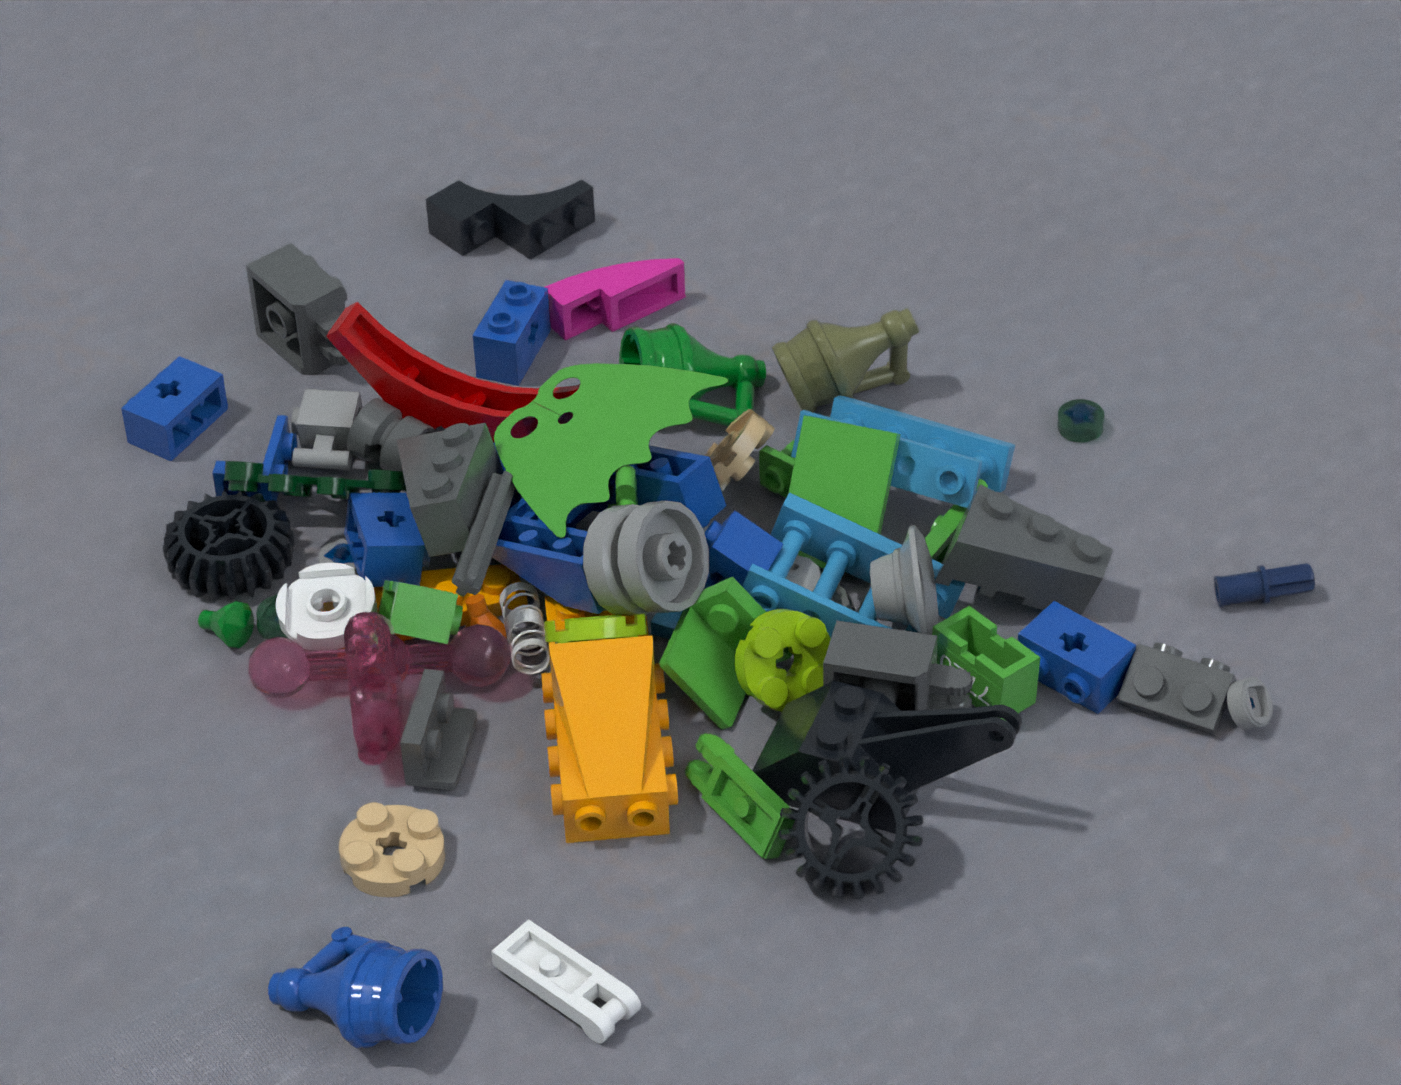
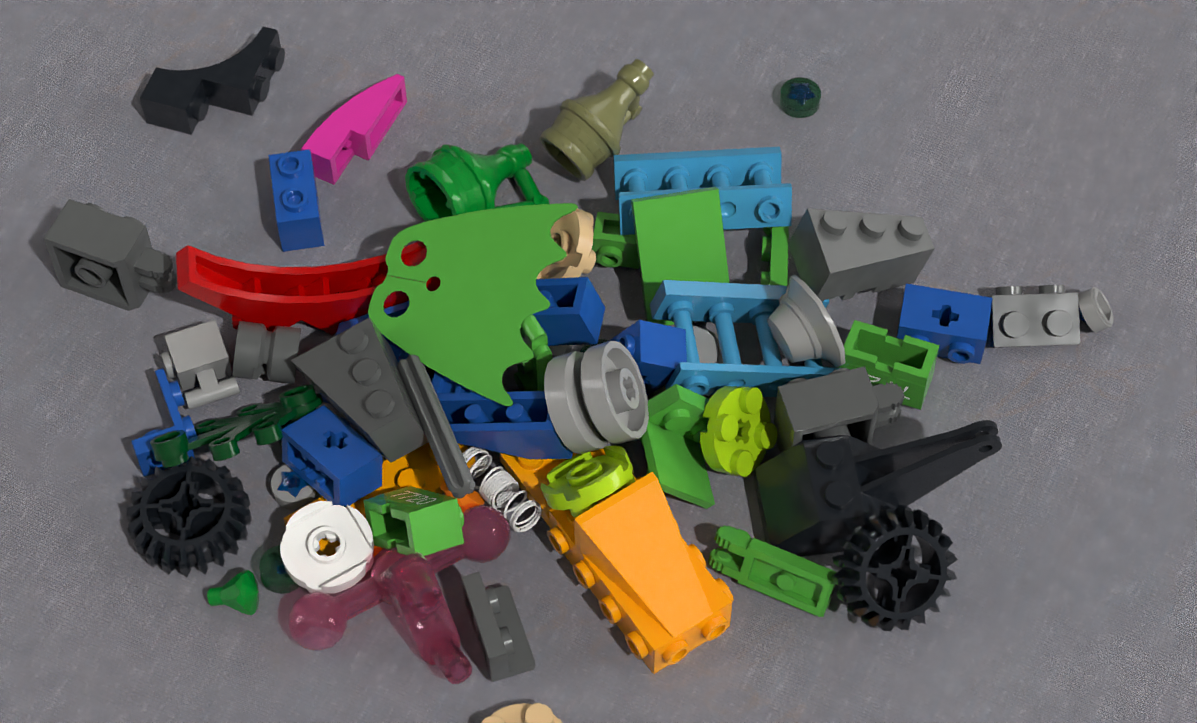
camera: 30 degrees left, 15 degrees up
(174, 408) = (45, 397): blue brick -> none
(1264, 584) = (1033, 195): dark blue axle -> none

